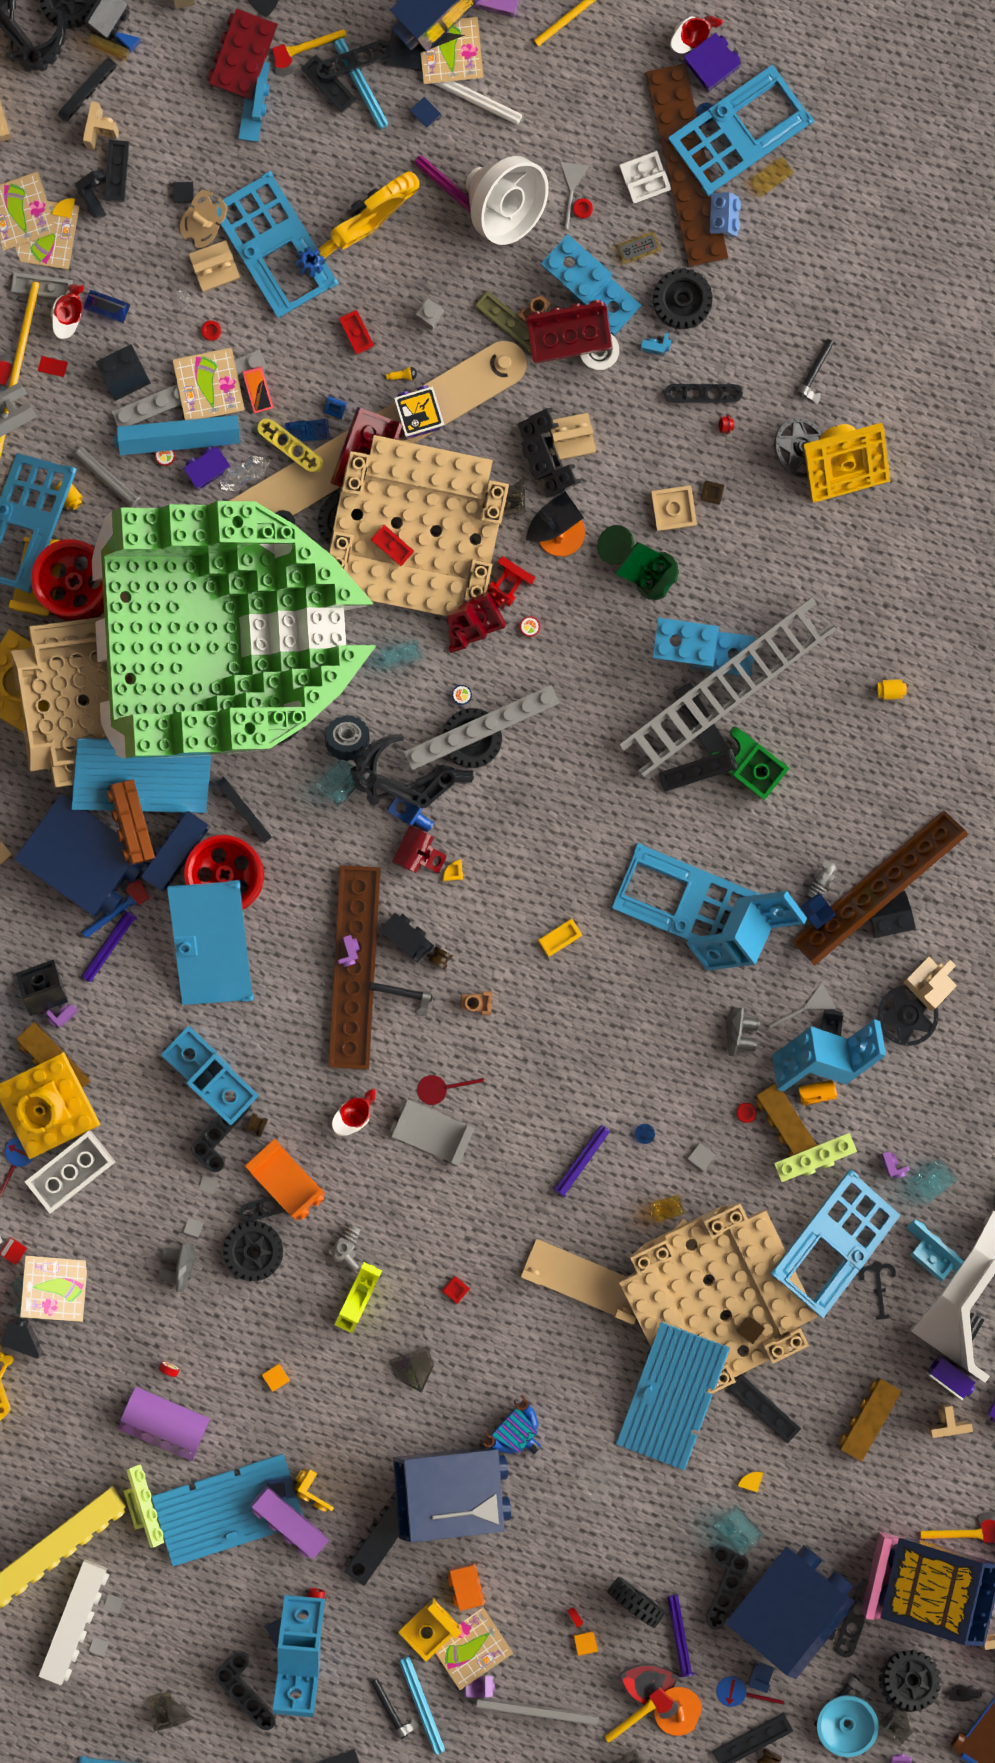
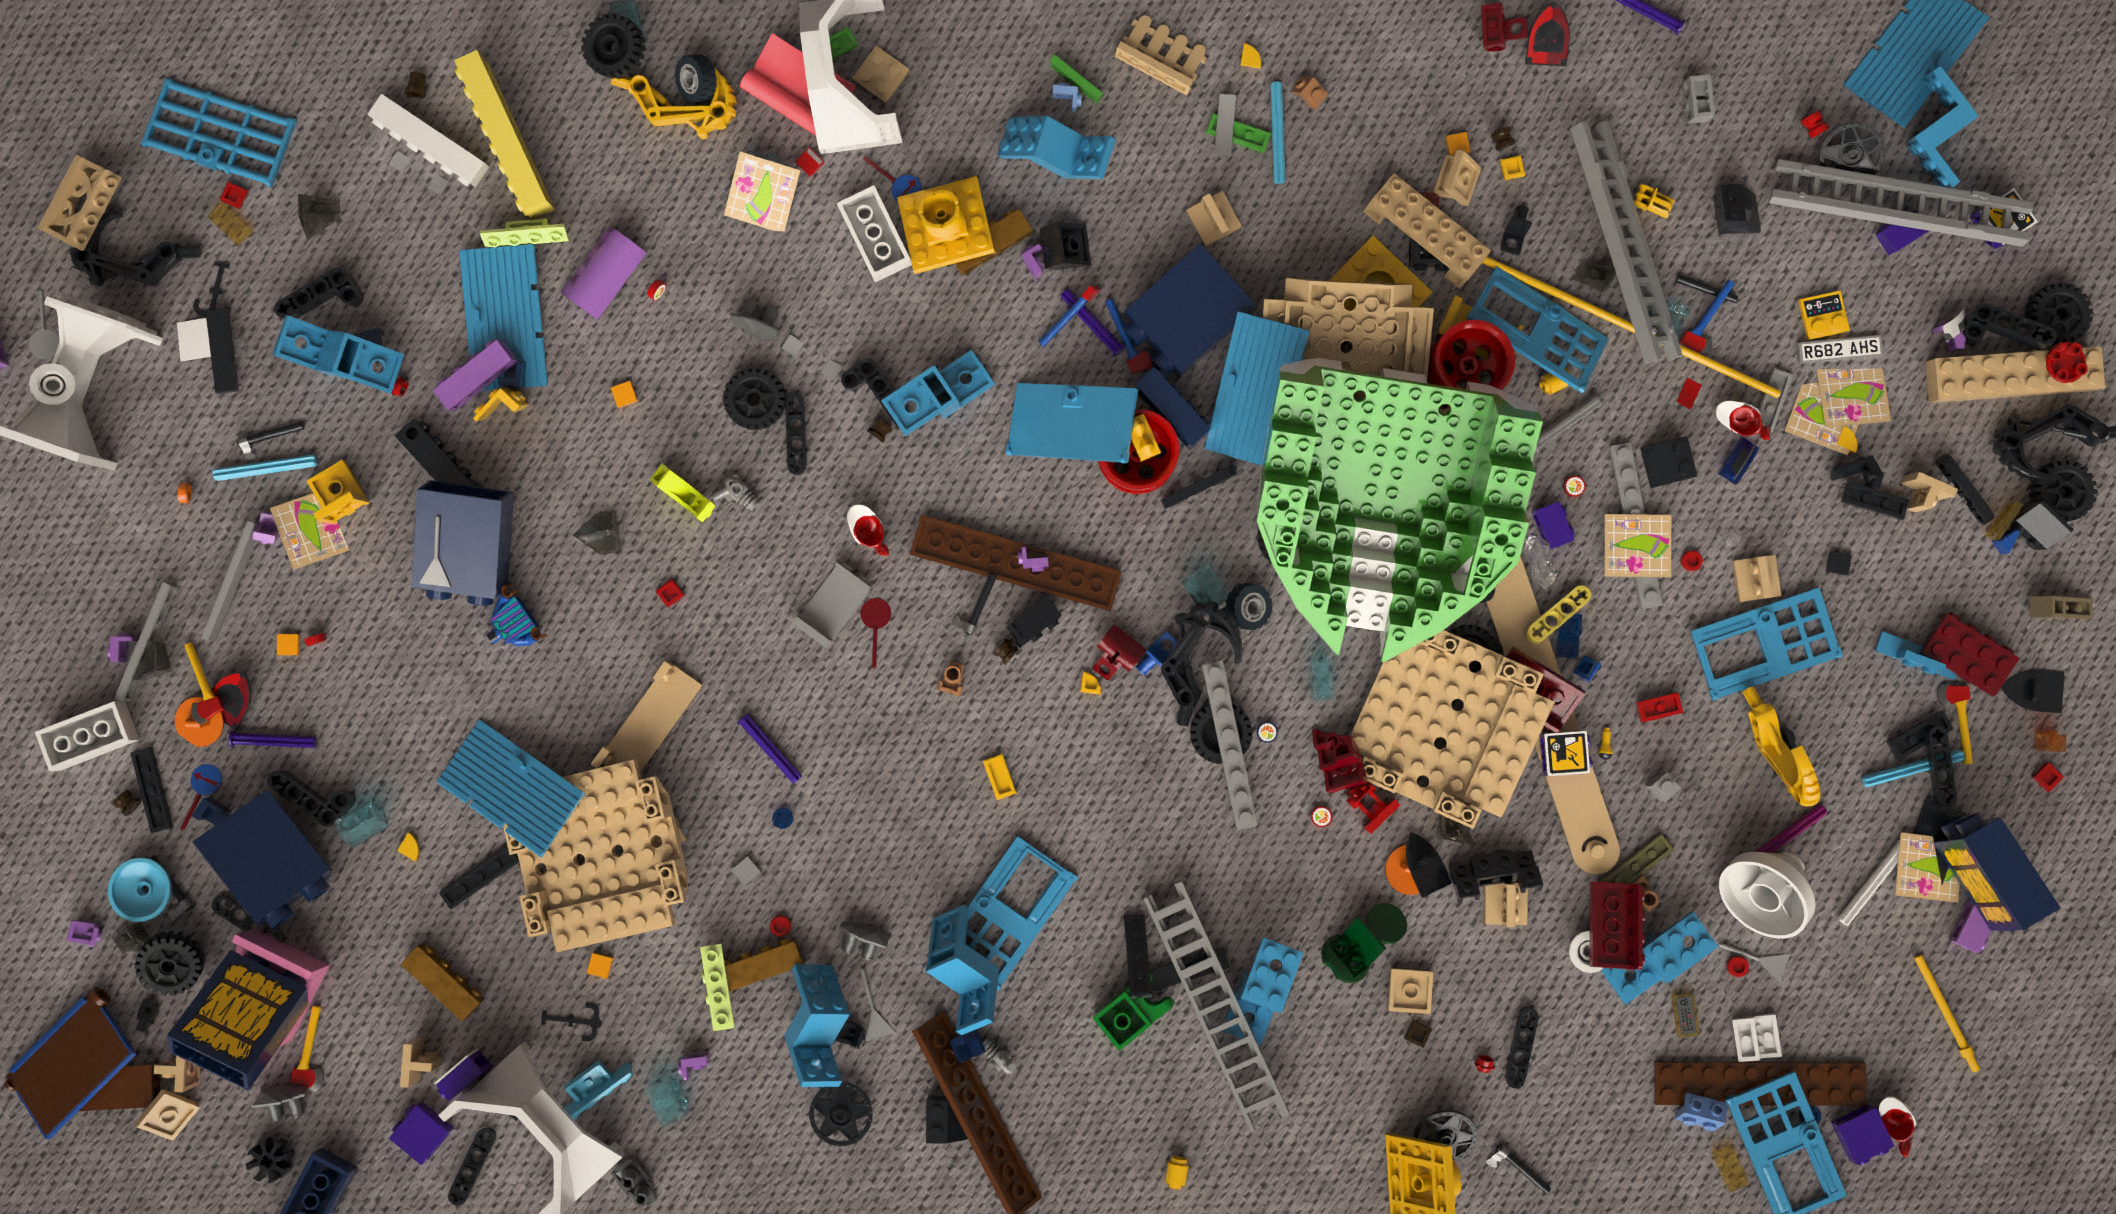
camera: 100 degrees right, 0 degrees up
(21, 1338) = (718, 149): black slope -> none
(22, 1647) = (416, 85): none -> dark brown bush
(106, 968) = (1085, 298): none -> blue piece
(131, 822) = (1211, 367): dark orange brick -> none
(177, 435) = (1593, 503): dark azure brick -> none
(202, 219) = (1808, 576): tan shield -> none
(212, 871) = (1143, 439): none -> yellow tile
(257, 389) = (1622, 594): slope -> none
(285, 1180) = (816, 446): orange panel -> none
(310, 256) = (1748, 677): blue piece -> none
(392, 545) = (1436, 695): red plate -> none
(425, 112) = (1871, 827): dark blue panel -> none
(466, 1586) = (370, 538): orange brick -> none
(636, 1602) = (311, 704): black wheel -> none
(654, 347) = (1580, 1007): dark azure bracket -> none
(667, 1208) = (702, 824): clear yellow bracket -> none
(686, 283) = (1638, 1055): black wheel -> none
(750, 1329) = (558, 881): dark brown tile -> none
(817, 1092) = (783, 1003): light orange arm -> none
(820, 1274) = (600, 965): none -> light orange tile
(839, 1240) = (623, 996): door -> none
(931, 982) = (868, 1146): tan bracket -> none

